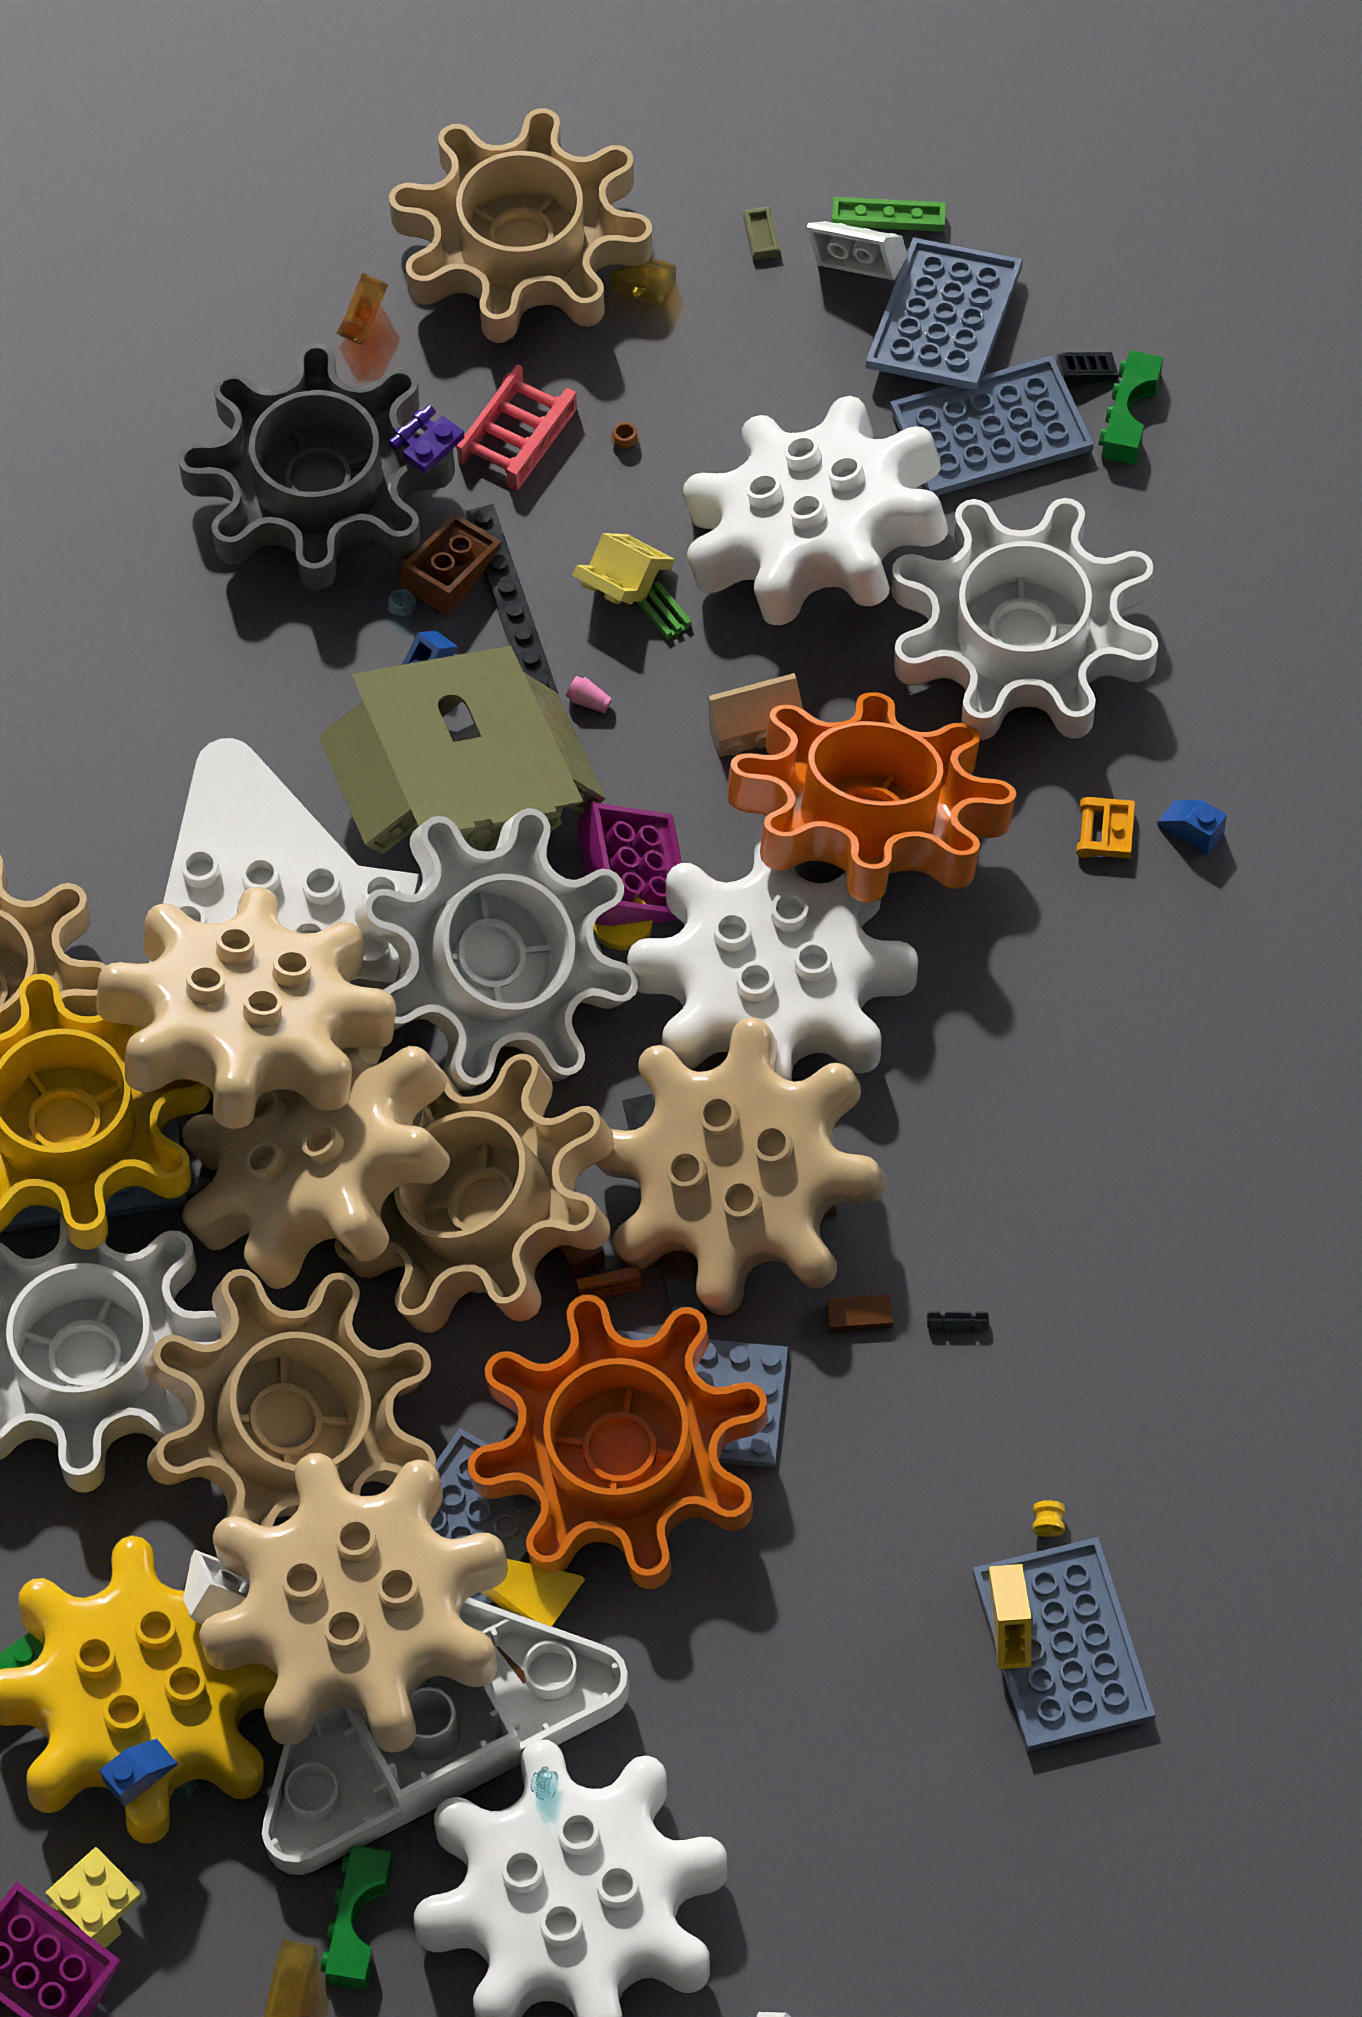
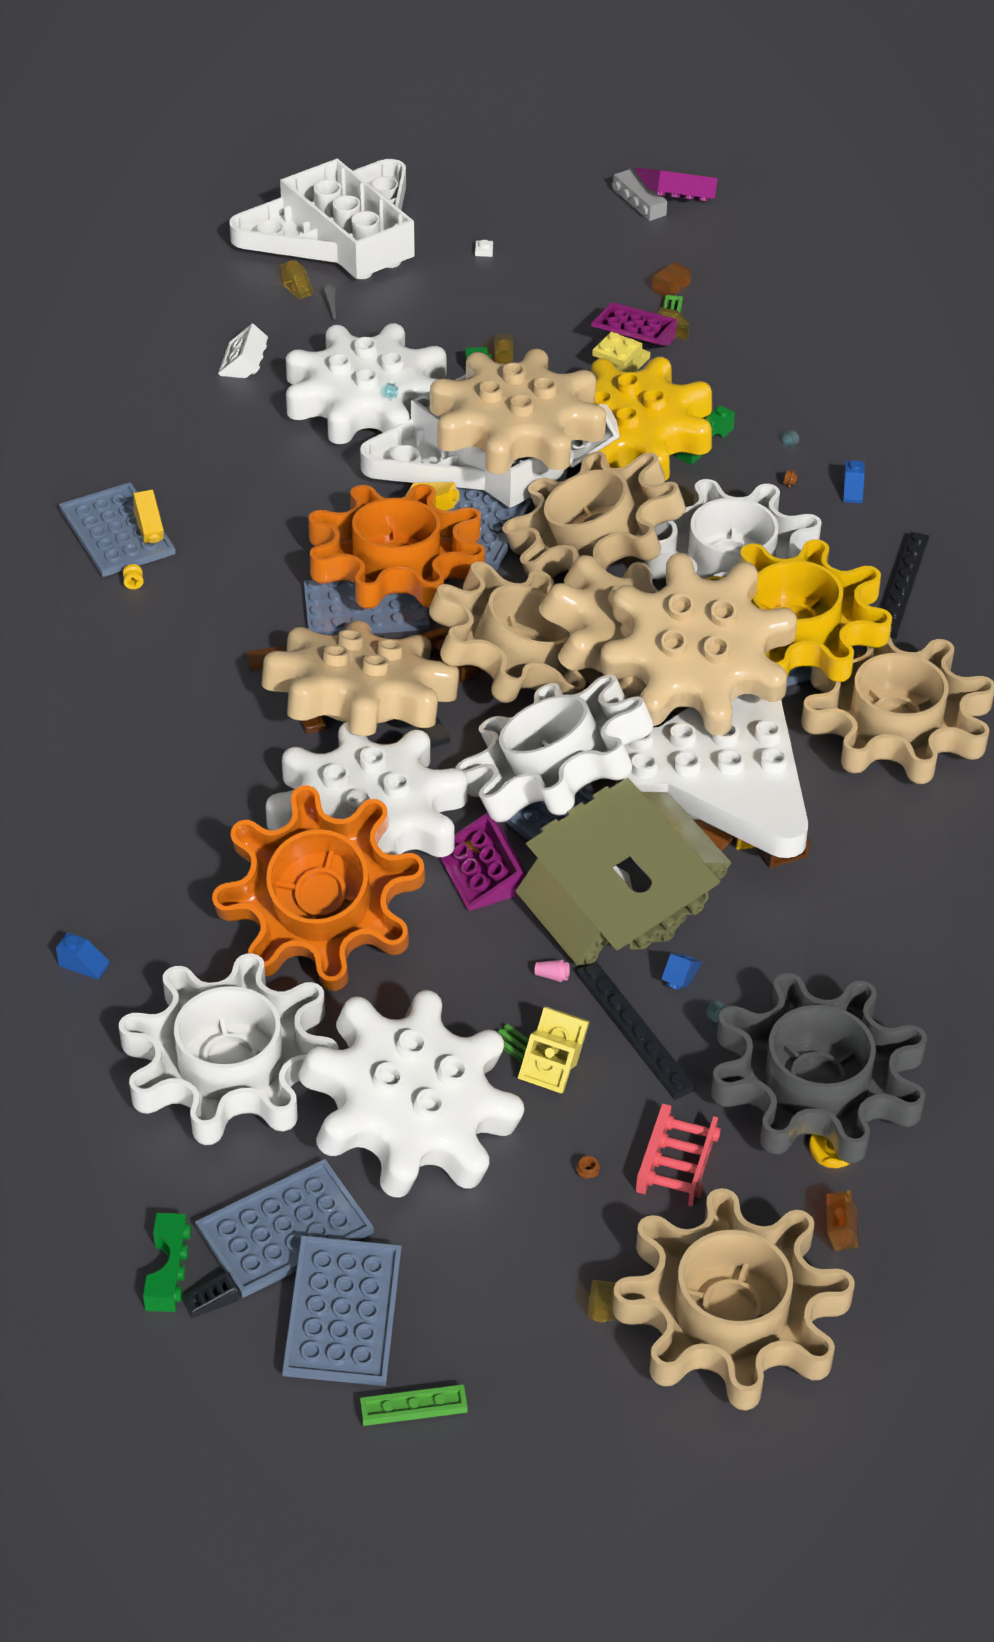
camera: 165 degrees right, 15 degrees down
(137, 1770) = (611, 359): blue slope -> none
(432, 444) = (731, 1070): dark purple plate -> none
(448, 564) = (689, 1031): reddish brown slope -> none
(742, 715) = (422, 968): tan slope -> none
(761, 233) = (524, 1372): olive tile -> none
(857, 249) = (433, 1345): white slope -> none
(958, 1320) = (205, 662): black axle -> none
(1116, 828) = (139, 946): light orange plate -> none

